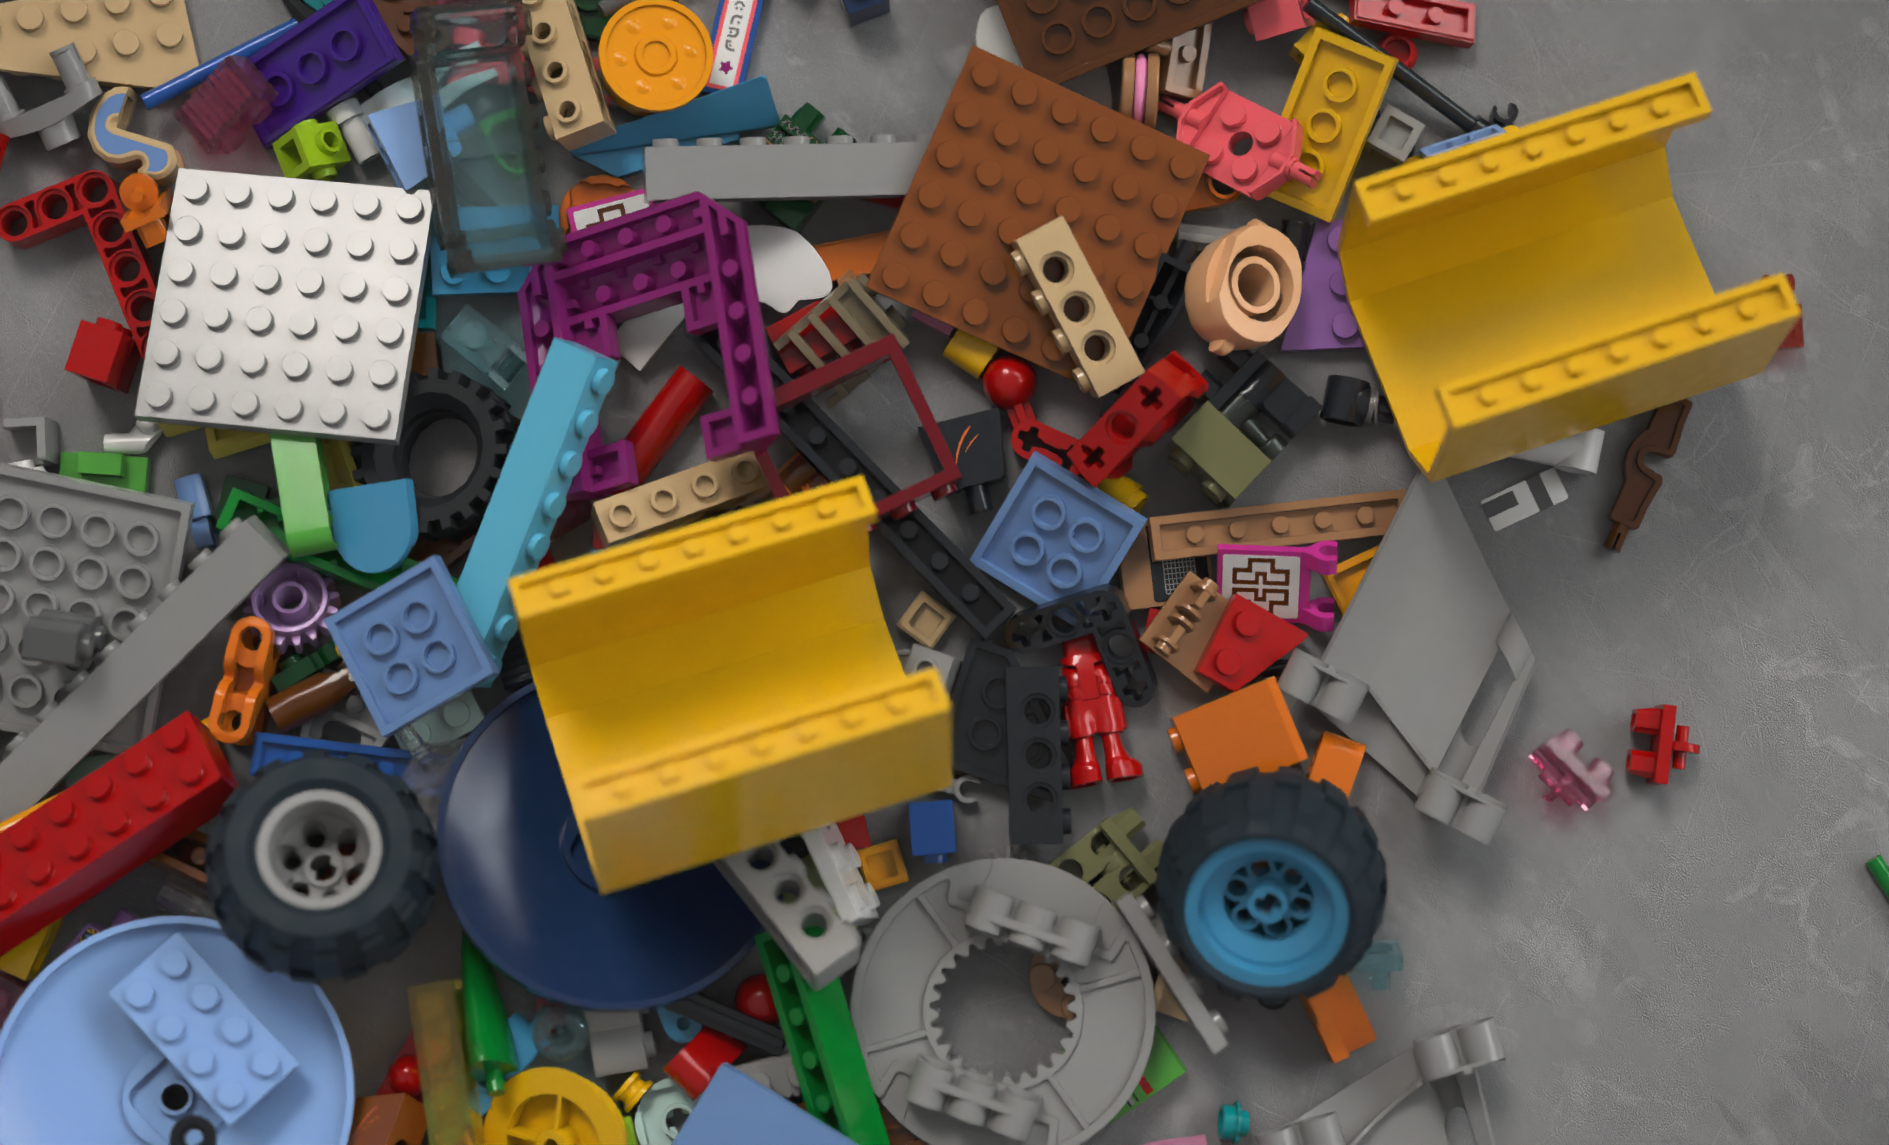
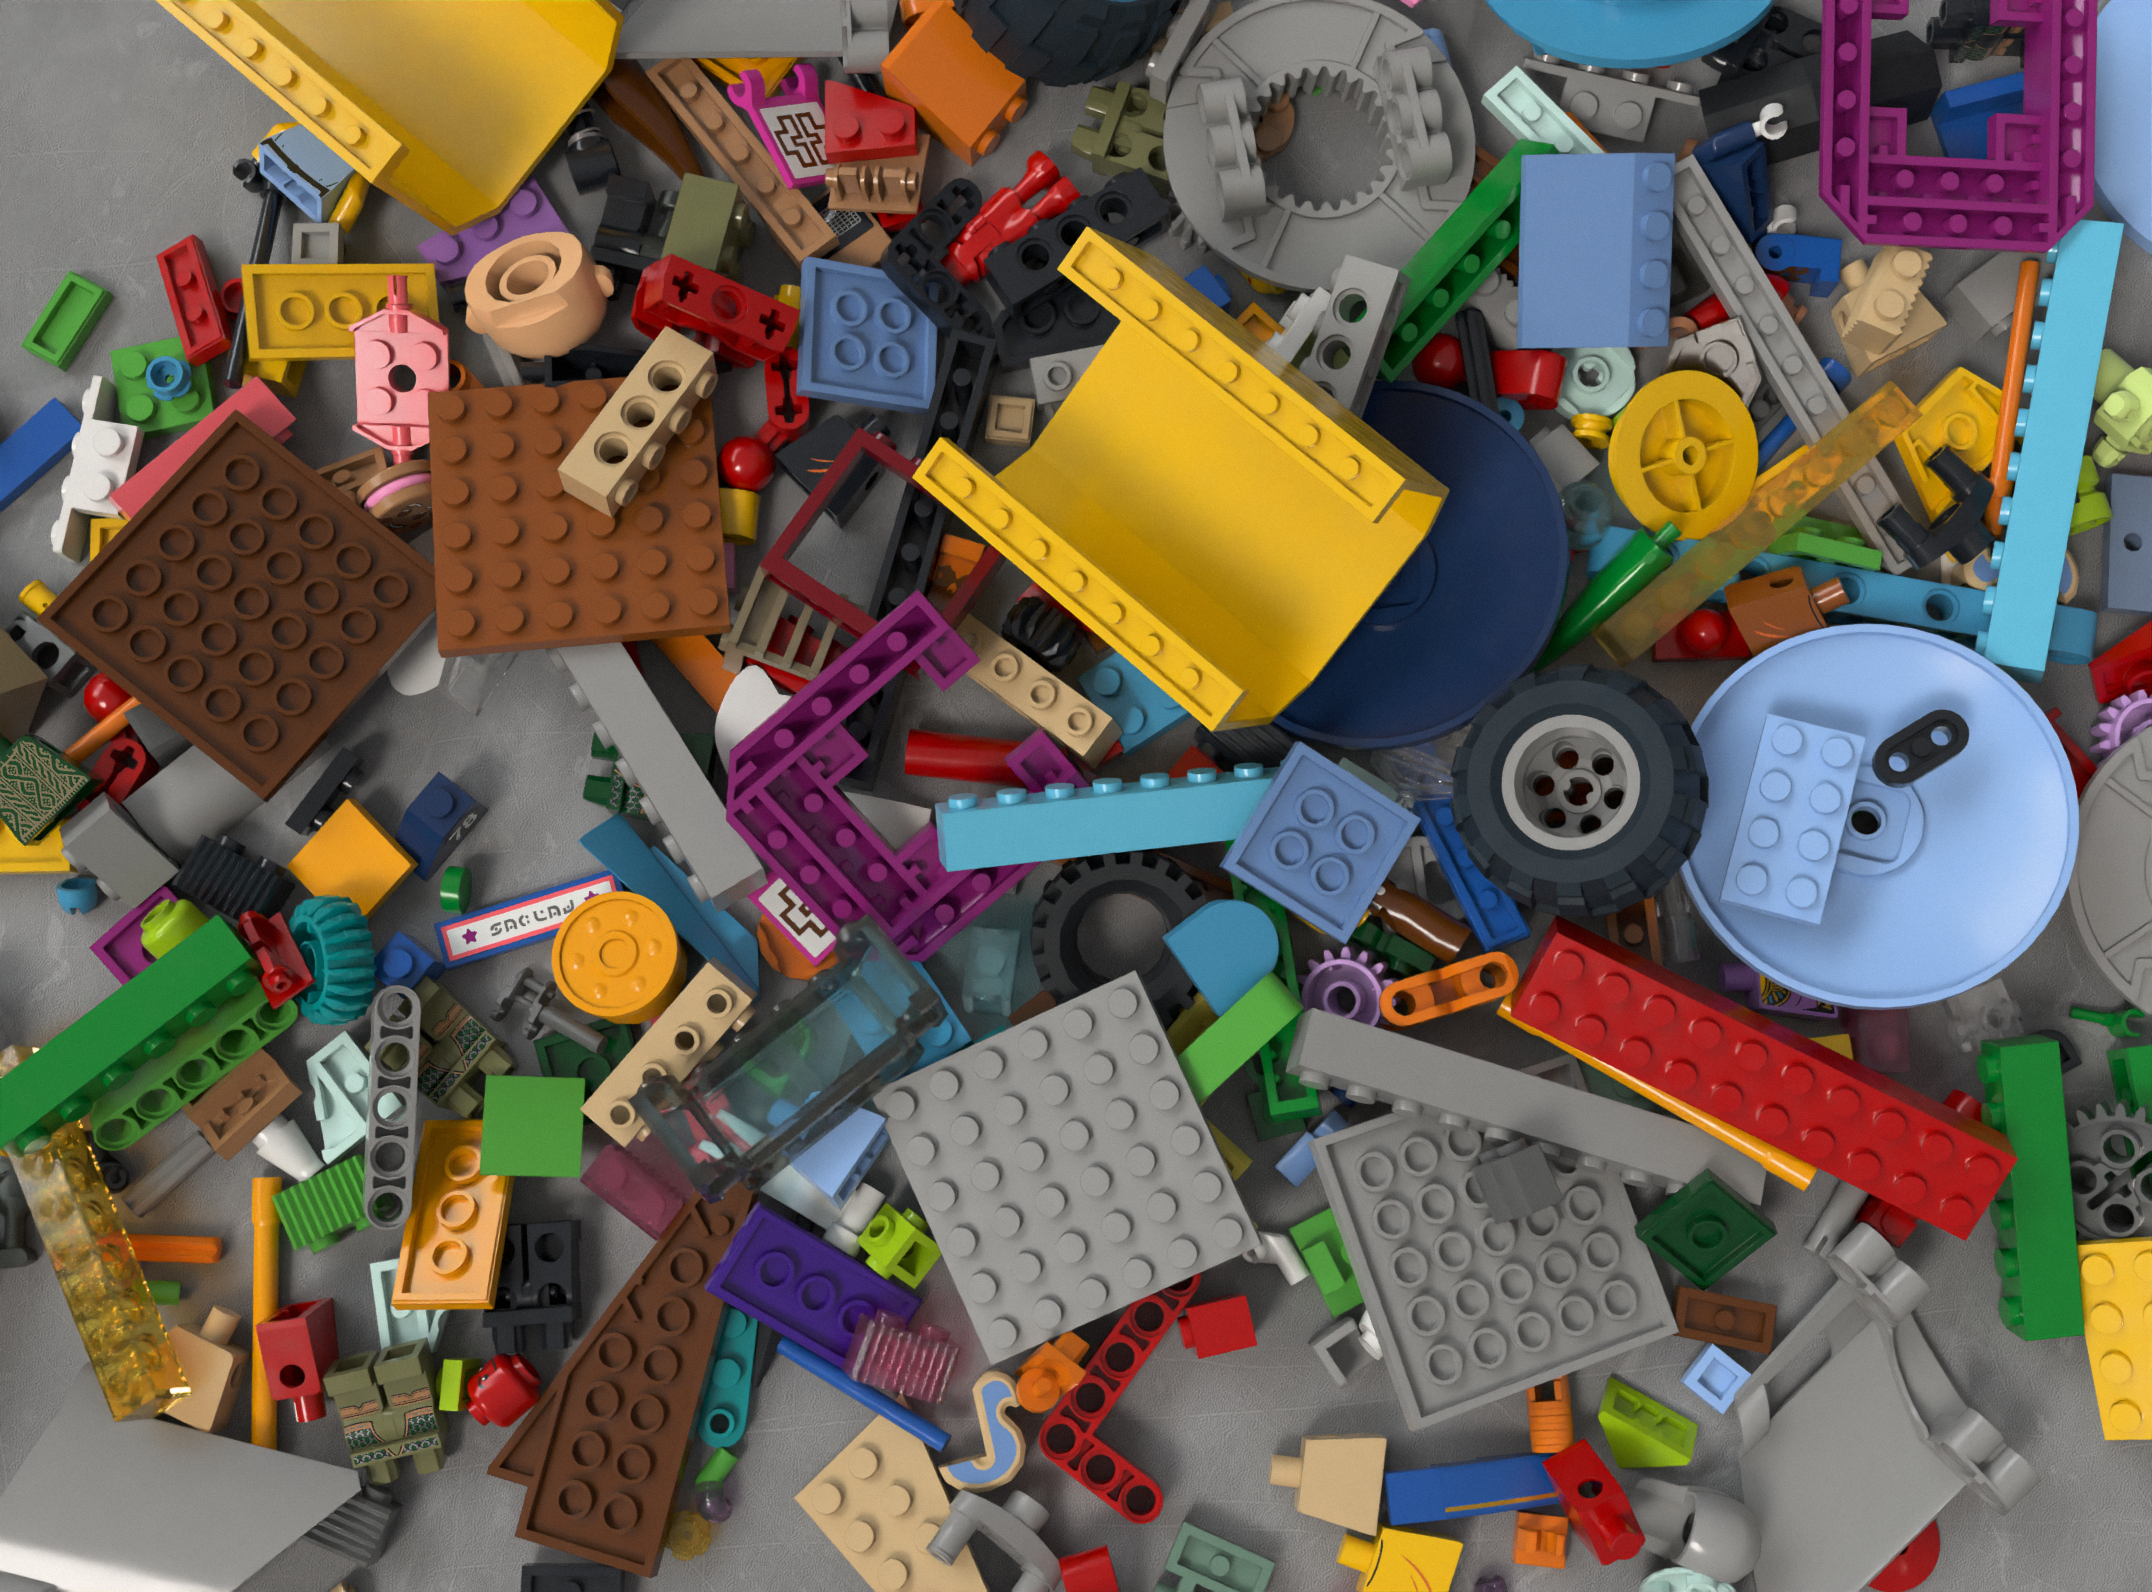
camera: 120 degrees left, 5 degrees down
(1367, 471) = (642, 112): none -> reddish brown piece

